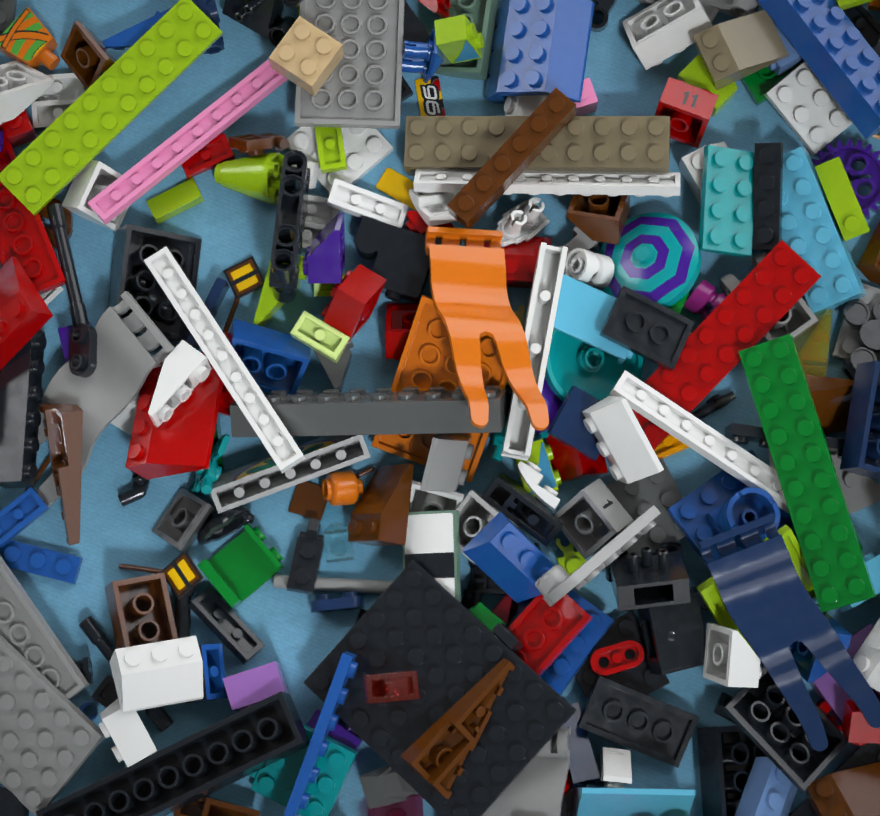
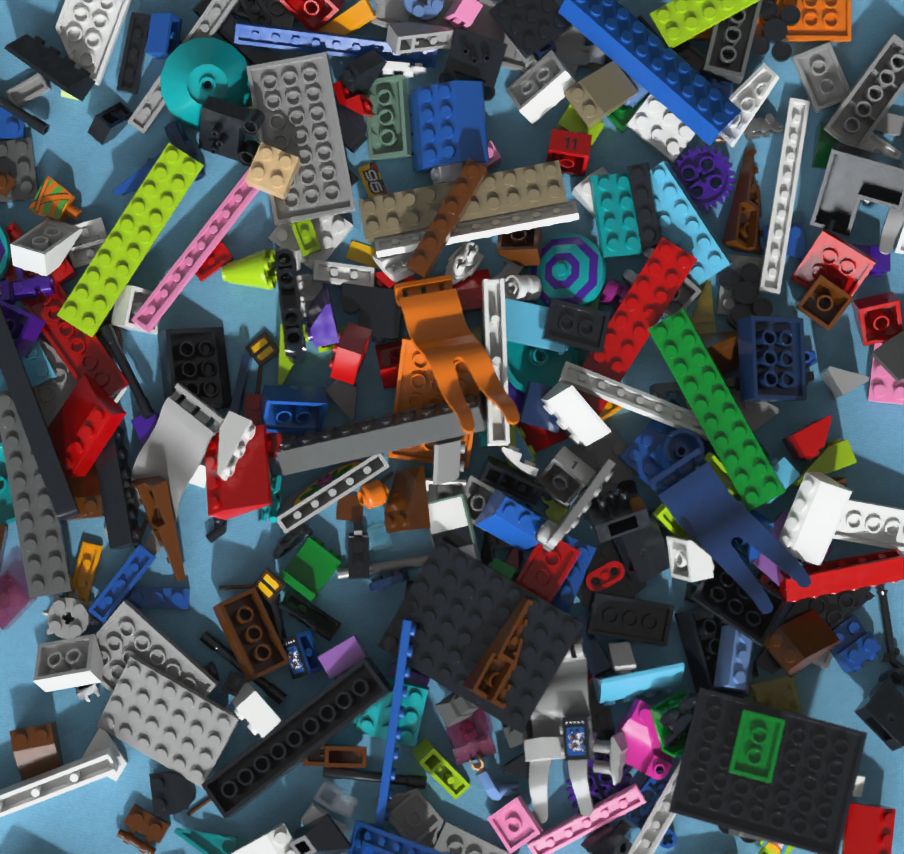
camera: 20 degrees left, 5 degrees up
(83, 350) = (155, 433): black plate -> none
(86, 55) = (103, 205): reddish brown slope -> none
(158, 674) = (269, 665): white slope -> none
(175, 201) = (195, 301): lime slope -> none
(183, 520) = (259, 543): flat silver slope -> none
(224, 360) = (264, 418): white plate -> none
(256, 143) = (249, 245): reddish brown plate -> none
(320, 336) = (331, 384): yellowish green slope -> none
(391, 687) = (445, 637): clear red slope -> none
(422, 57) = (361, 151): blue connector -> none
(458, 39) = (385, 132): lime brick -> none
(507, 637) = (522, 580): black tile -> none
(713, 404) = (636, 369): black piece -> none
(842, 198) = (701, 194): lime slope -> none

